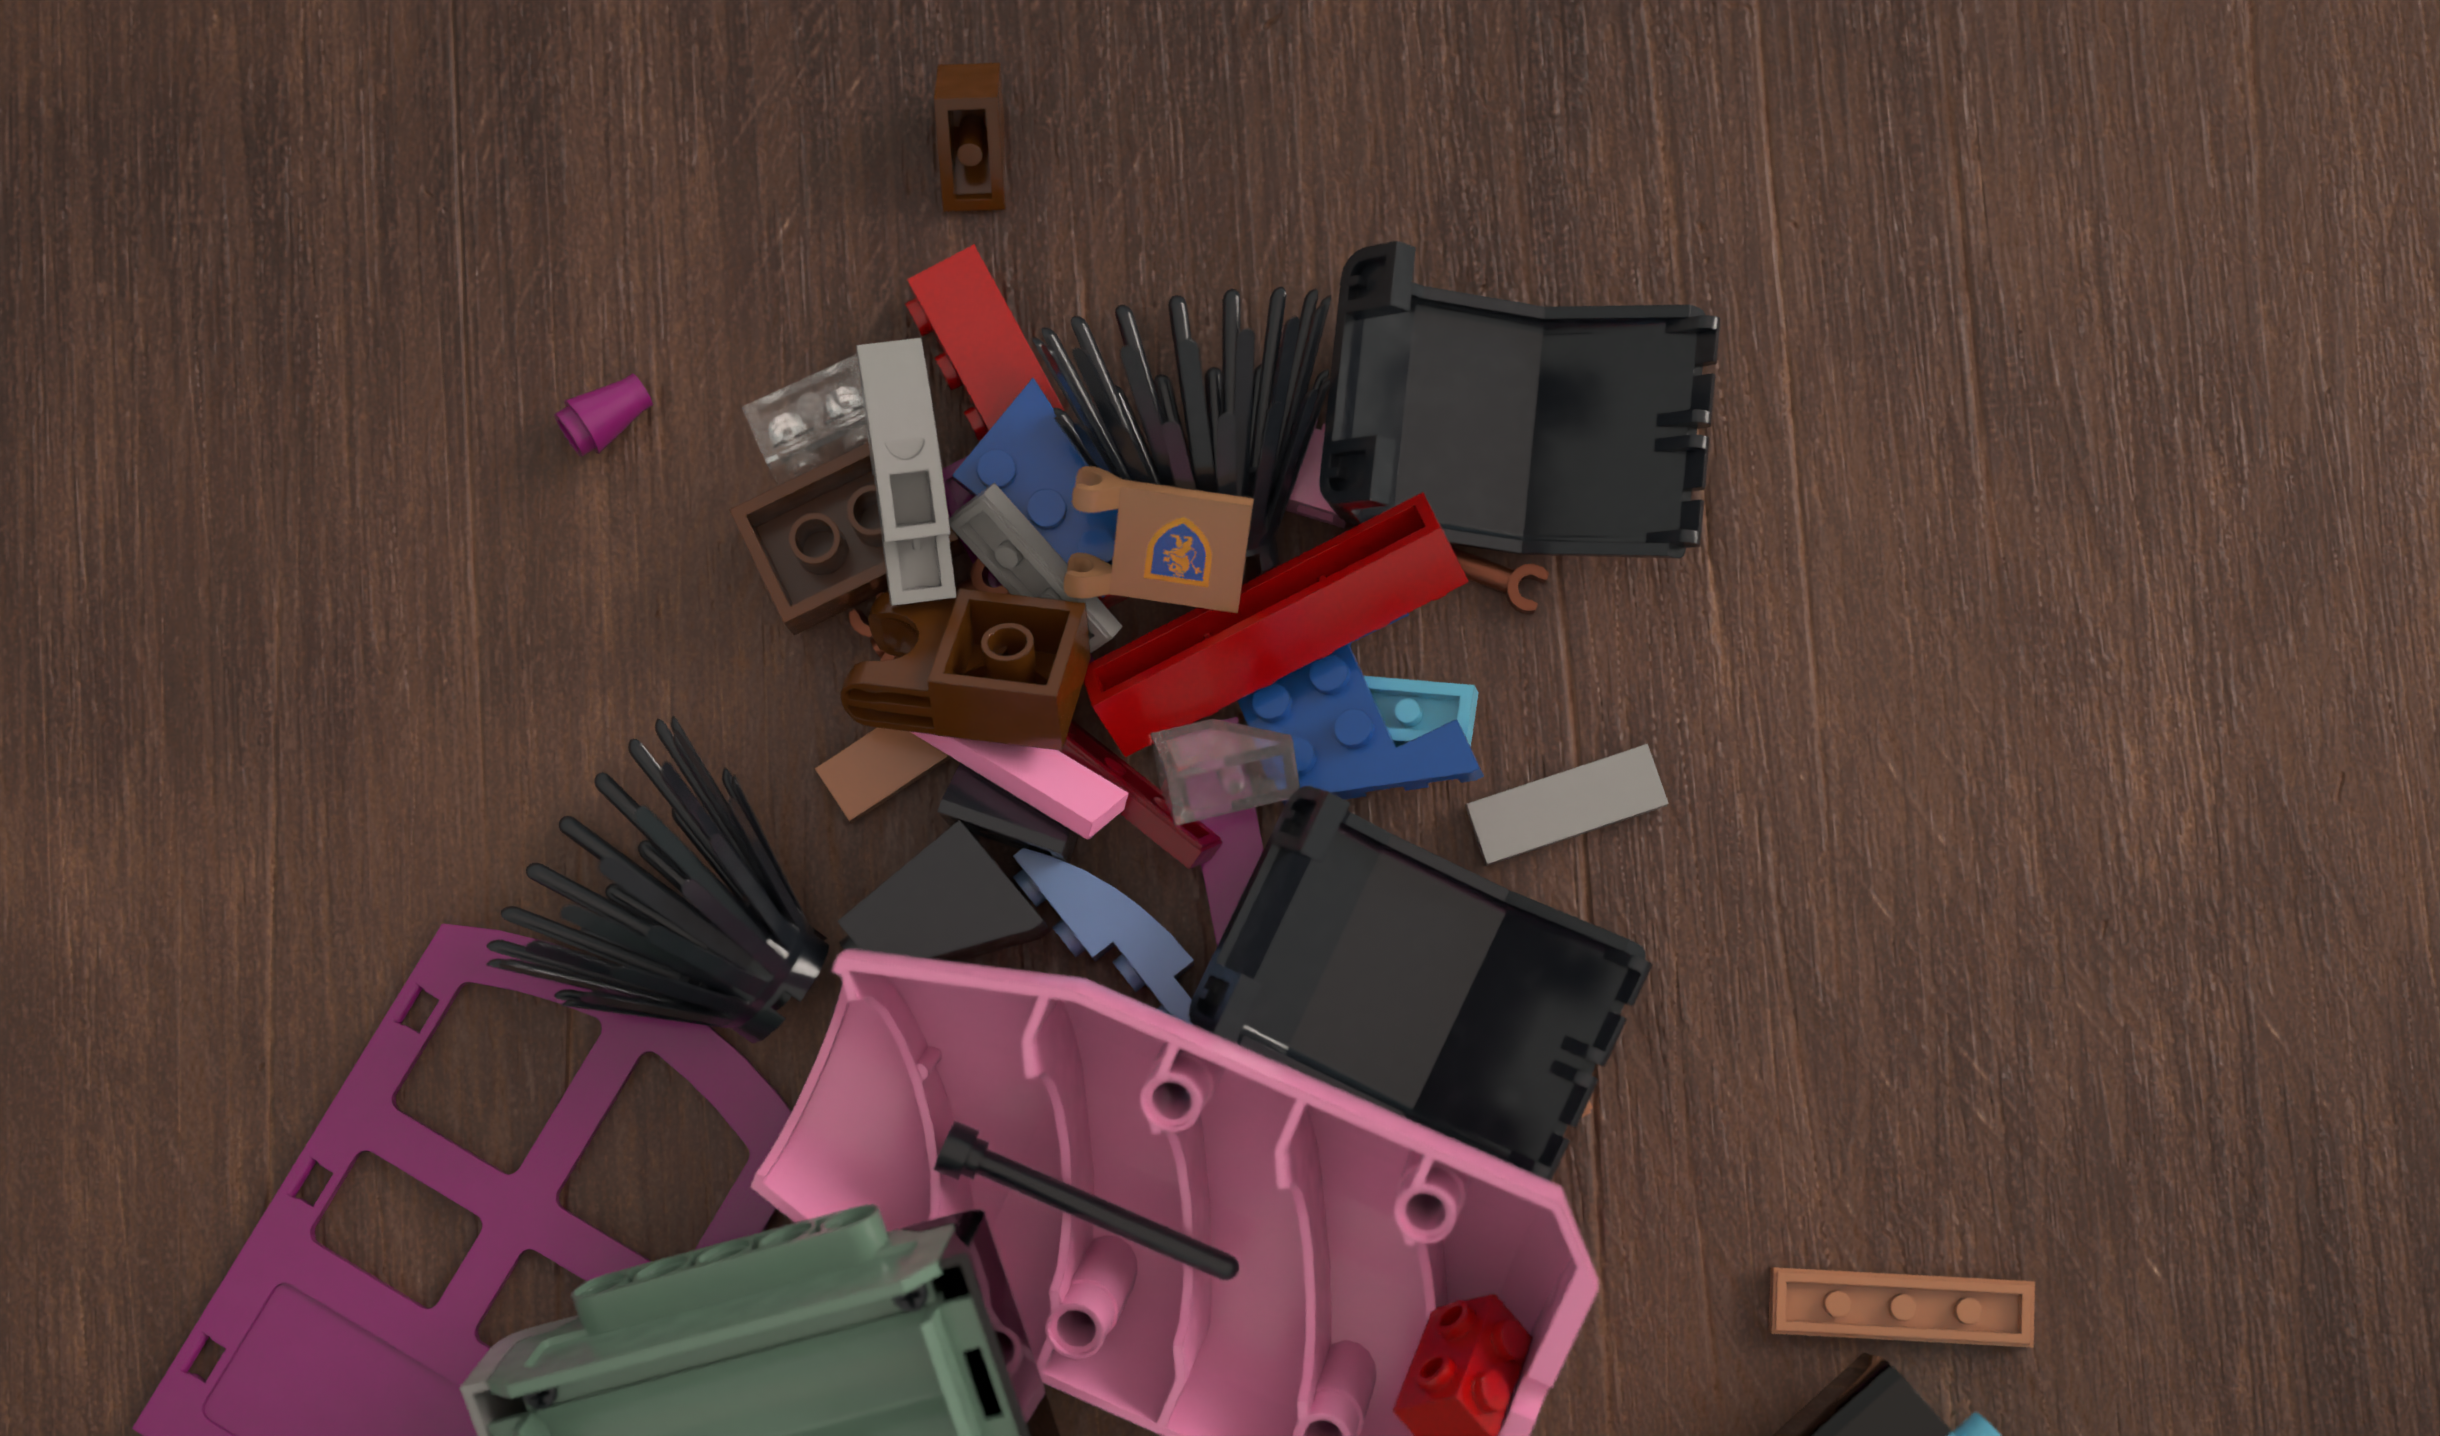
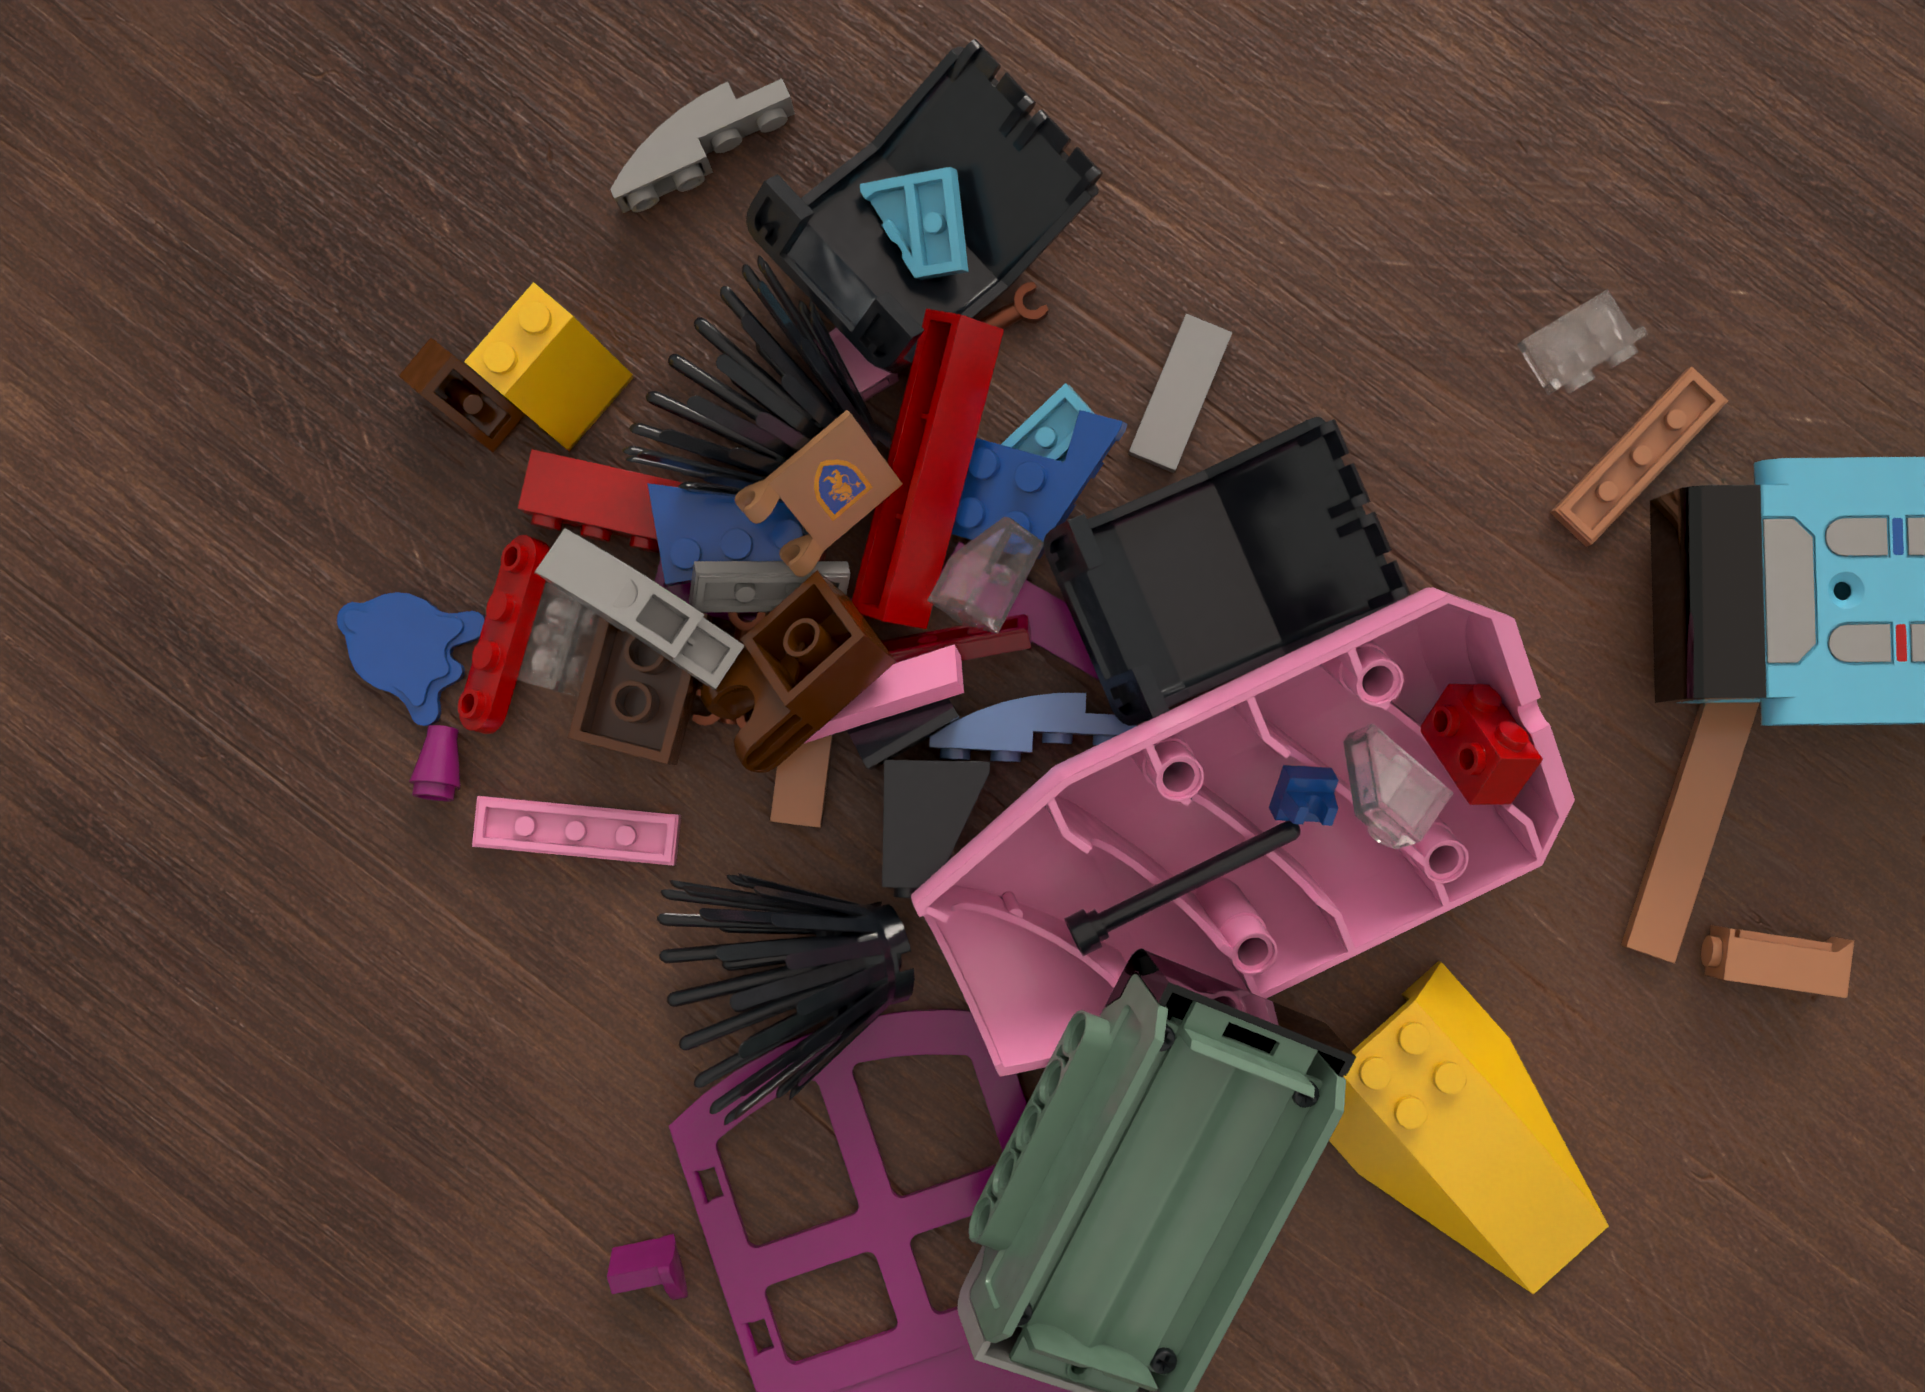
camera: 50 degrees left, 5 degrees up
(293, 1017) = (648, 1265): none -> magenta tile
(651, 596) = (576, 830): none -> bright pink tile
(689, 291) = (408, 648): none -> blue tile
(775, 370) = (503, 636): none -> red plate
(1064, 196) = (550, 367): none -> yellow slope
(1271, 1250) = (1305, 795): none -> blue tile
(1343, 1324) = (1391, 789): none -> clear slope
(1379, 134) = (678, 148): none -> light grey slope
(1511, 419) = (923, 219): none -> medium azure wing
(1960, 1151) = (1579, 342): none -> clear bracket

